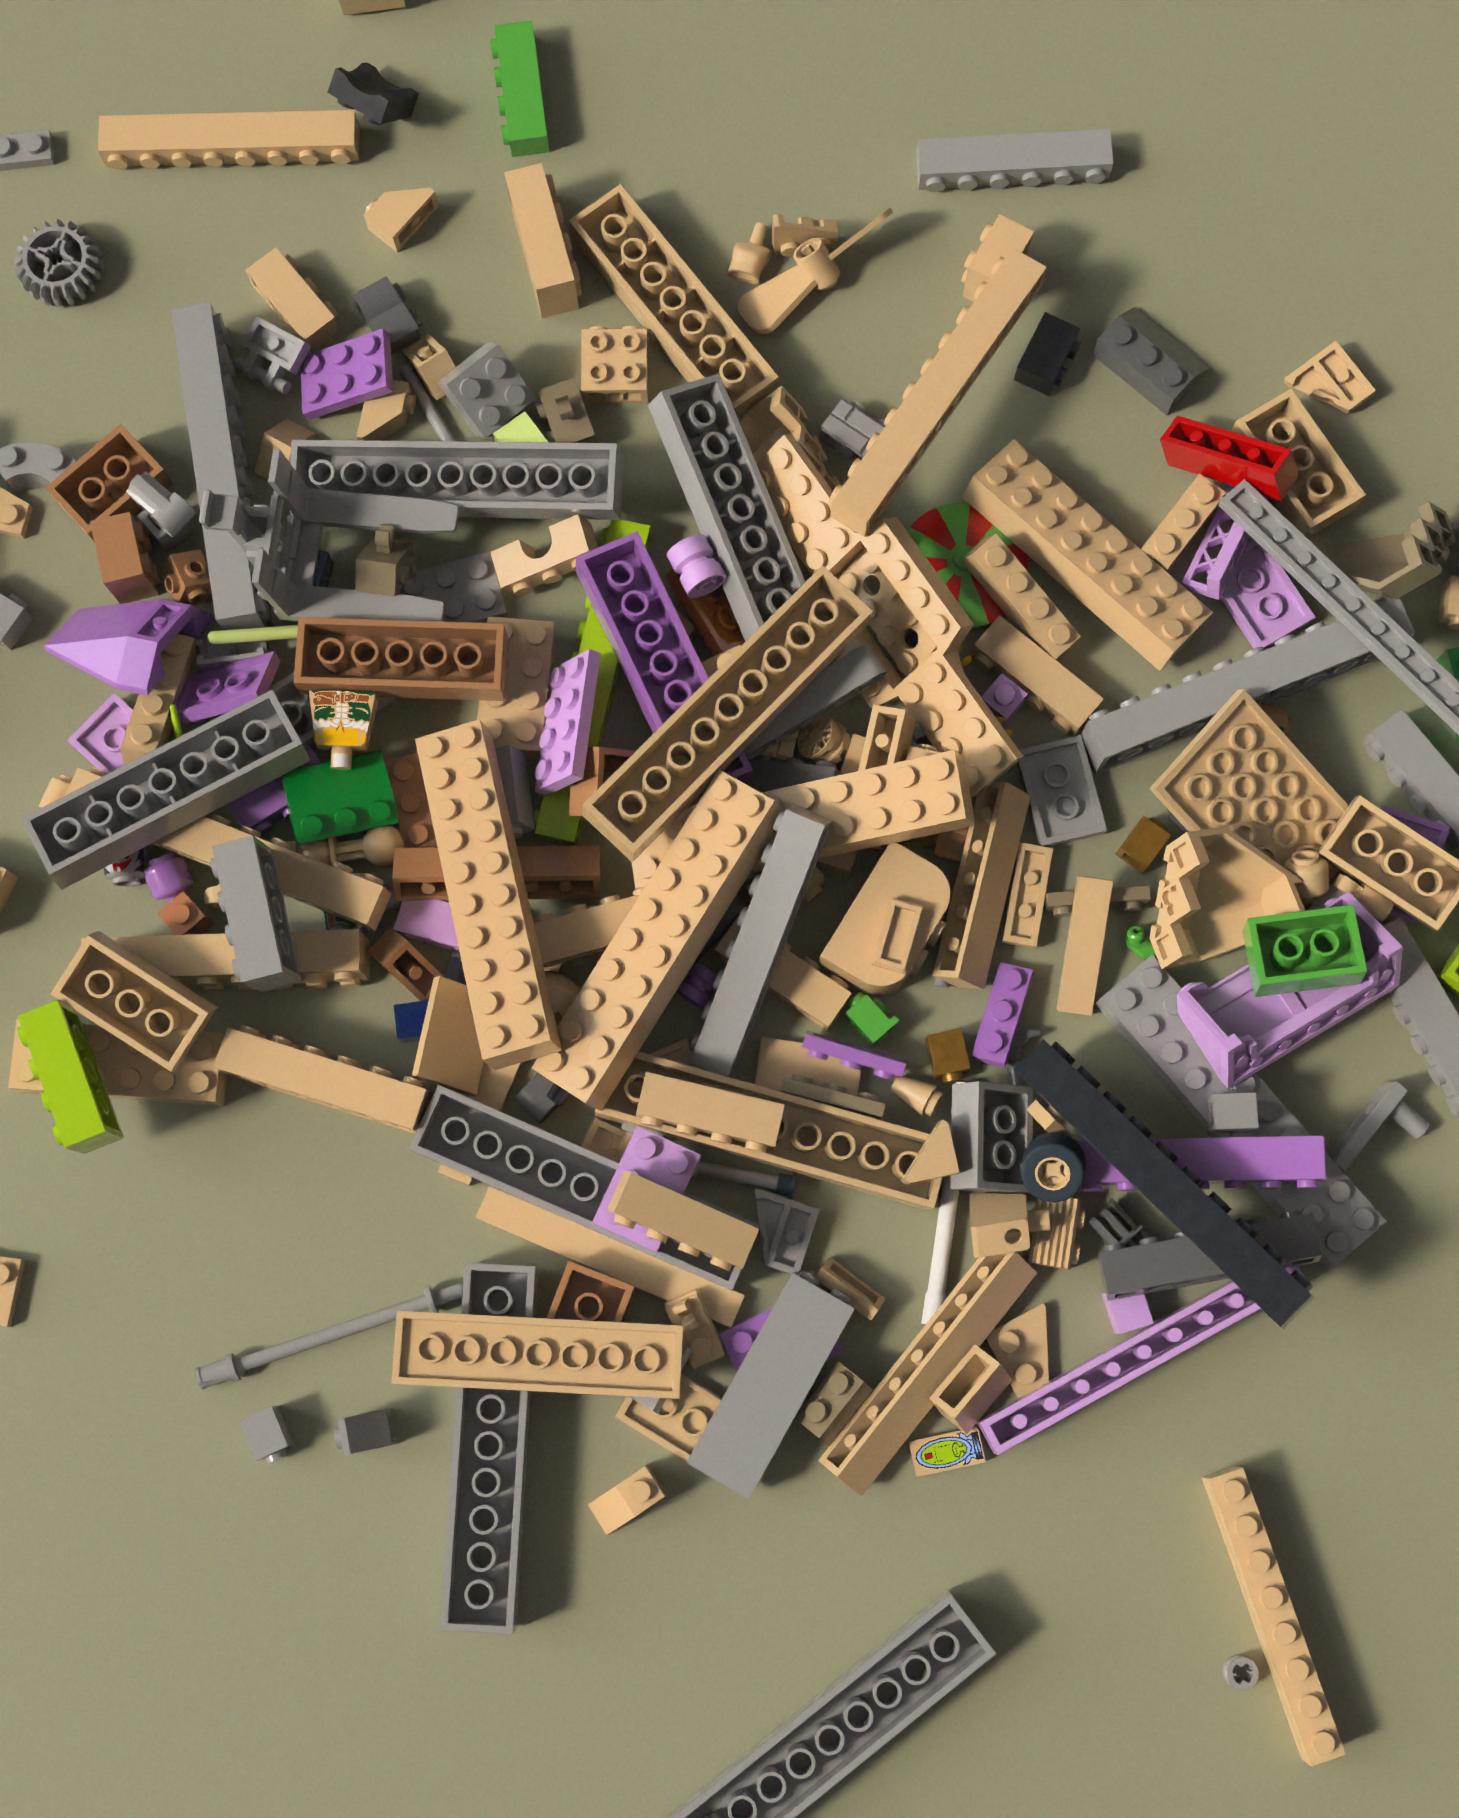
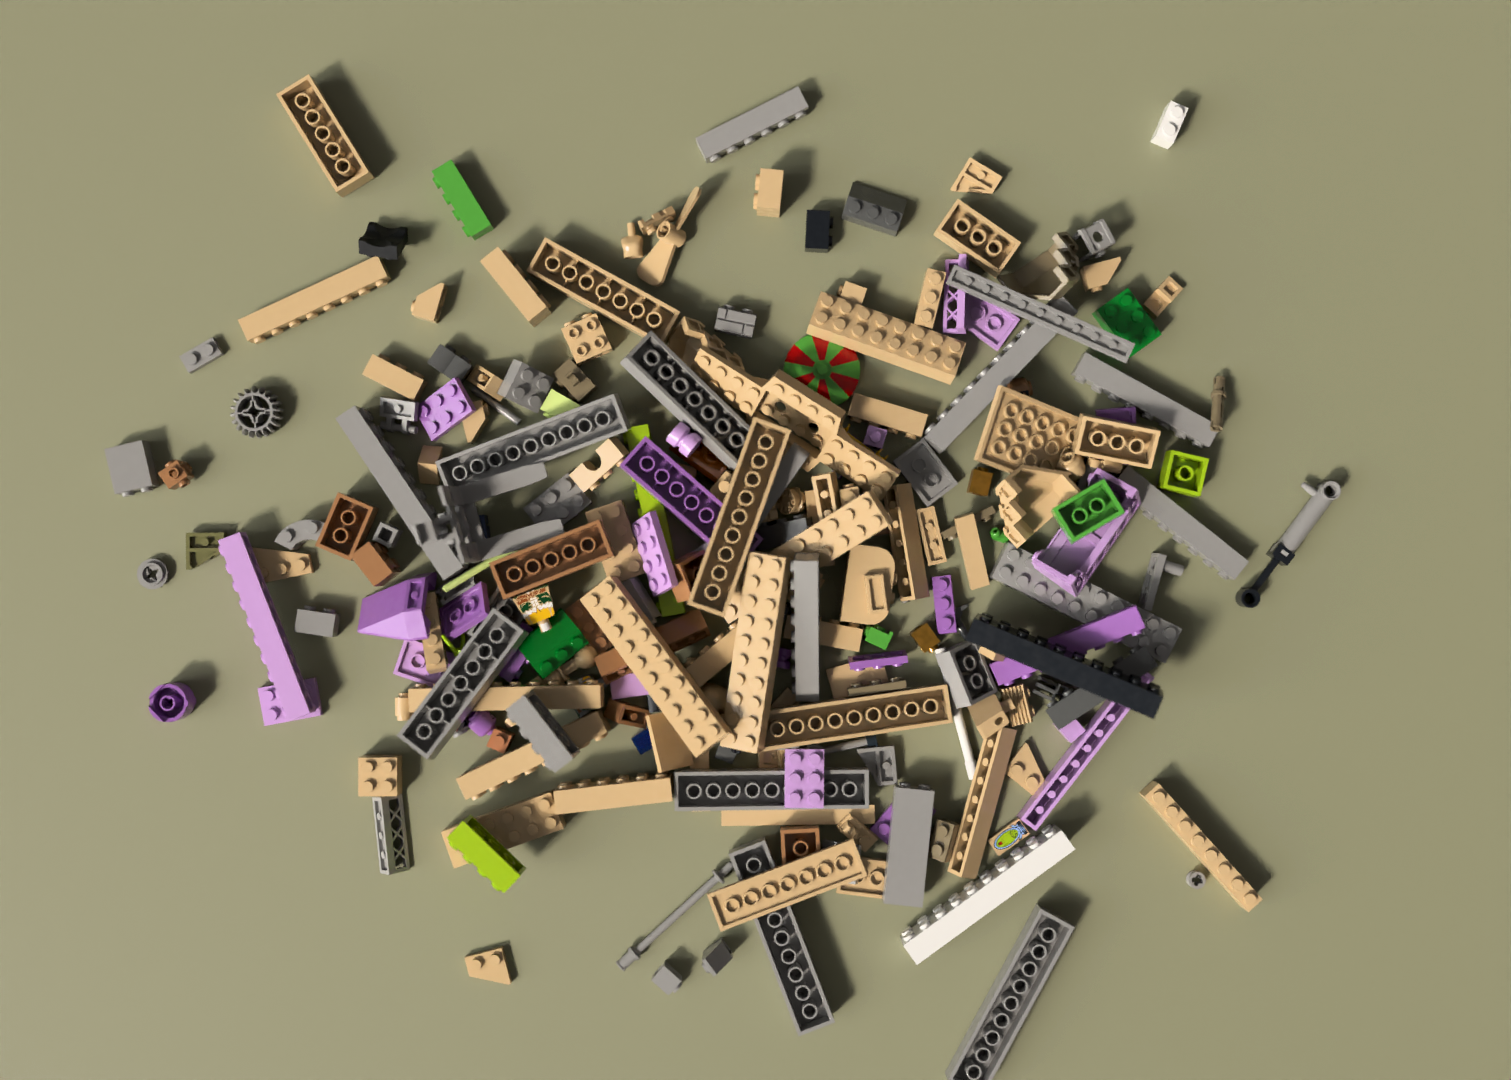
camera: 25 degrees left, 10 degrees up
(133, 1000) = (500, 801): tan brick -> none
(166, 509) = (388, 531): light grey piece -> none
(187, 577) = (414, 559): medium nougat brick -> none
(385, 563) = (518, 510): dark tan brick -> none
(627, 1499) = (861, 930): tan slope -> none
(683, 1220) = (830, 788): tan brick -> none
(709, 1111) = (820, 726): tan brick -> none
(862, 1296) = (926, 777): tan tile -> none
(868, 1527) = (986, 893): none -> white brick
(919, 1095) = (919, 664): tan cone -> none
(935, 1157) = (942, 699): tan slope -> none
(937, 392) = (773, 289): tan brick -> none
(970, 1389) = (1008, 803): tan piece -> none
(1020, 596) = (861, 378): tan brick -> none
(1057, 1179) = (1004, 677): black wheel -> none
(1064, 464) = (852, 292): none -> tan brick
(1229, 457) = (940, 253): red brick -> none
(1234, 1112) = (1084, 609): light grey brick -> none

